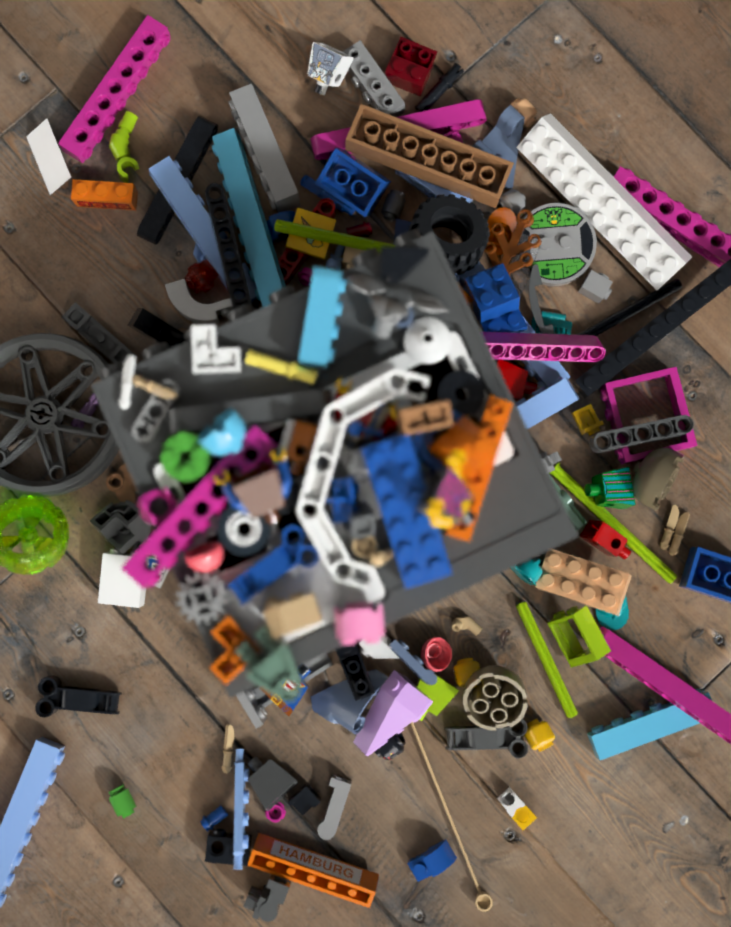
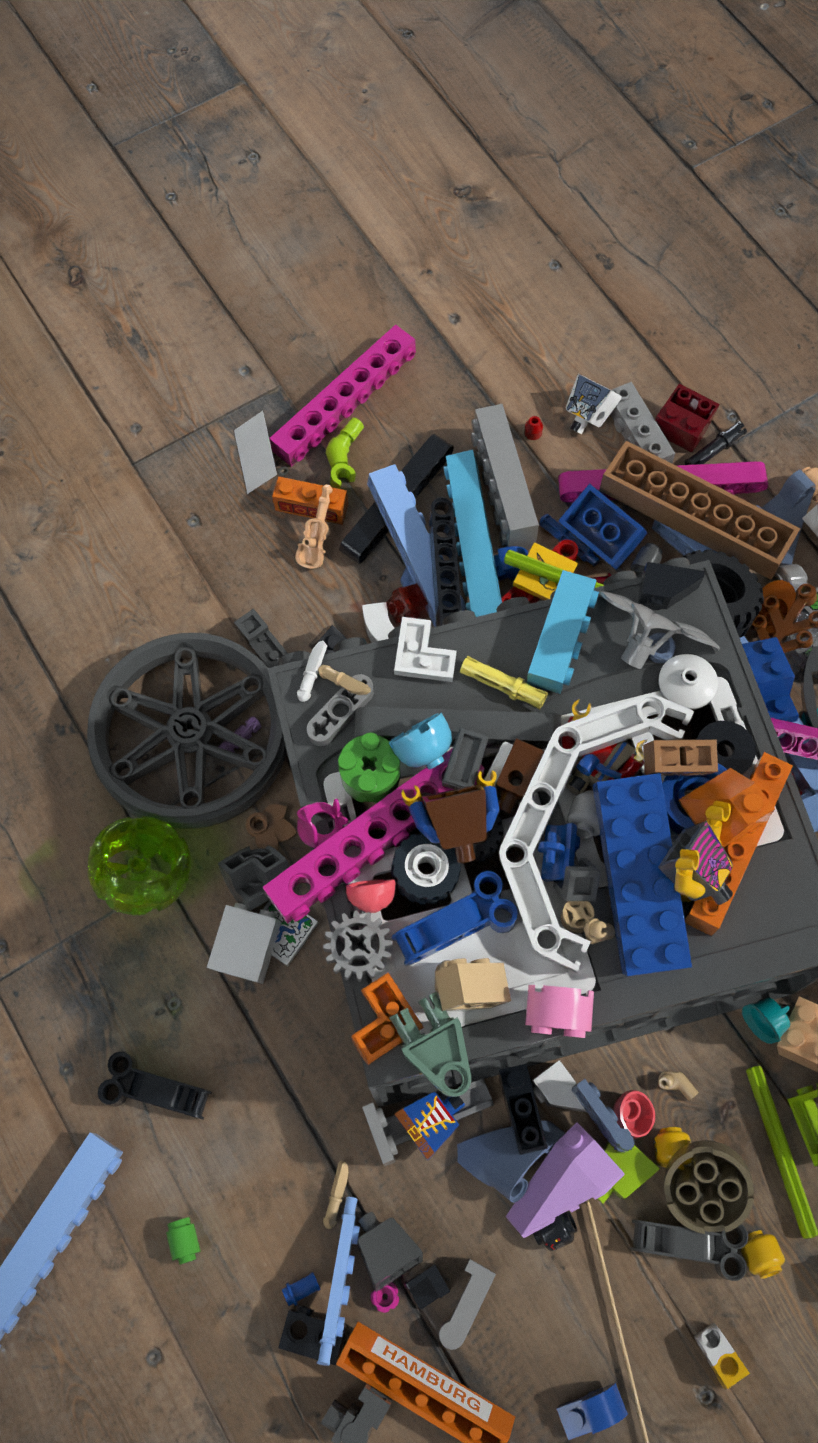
camera: 15 degrees right, 15 degrees down
(113, 241) = (311, 552): none -> light nougat piece
(260, 440) = (465, 759): none -> dark grey tile
(285, 98) = (533, 428): none -> red hose

